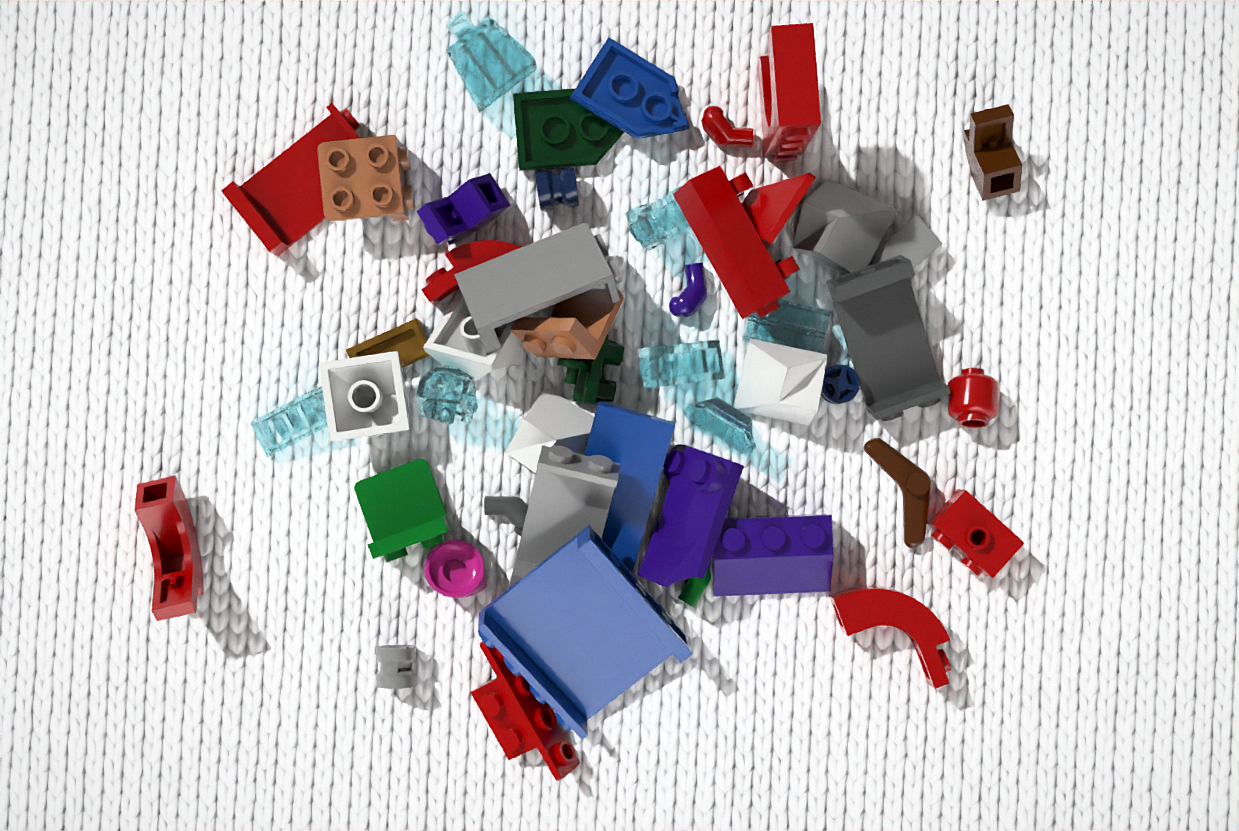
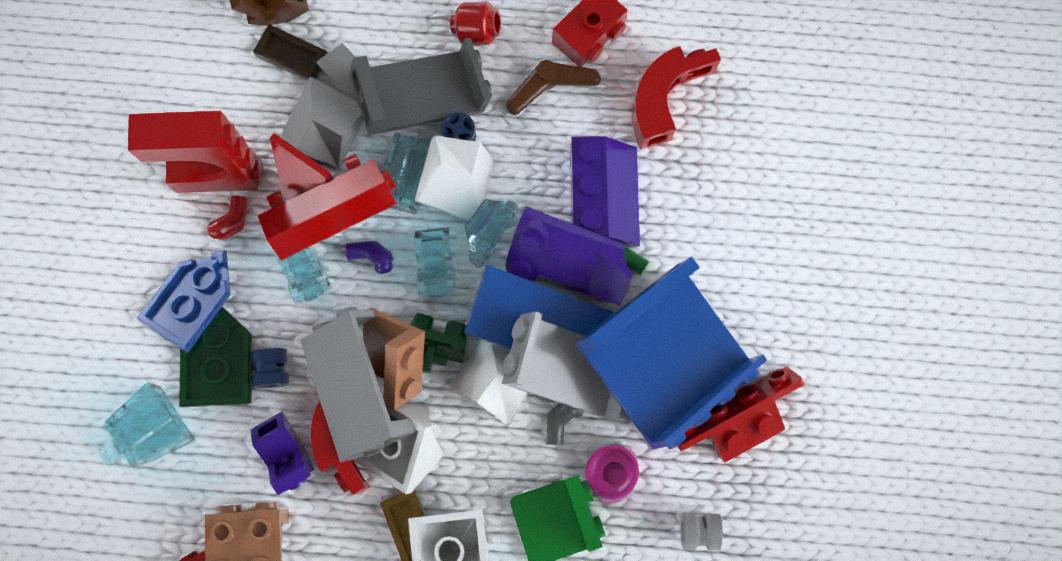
camera: 90 degrees left, 10 degrees down
(445, 393) = (451, 472): clear light blue hand -> none
(930, 182) = (289, 52): none -> dark brown tile

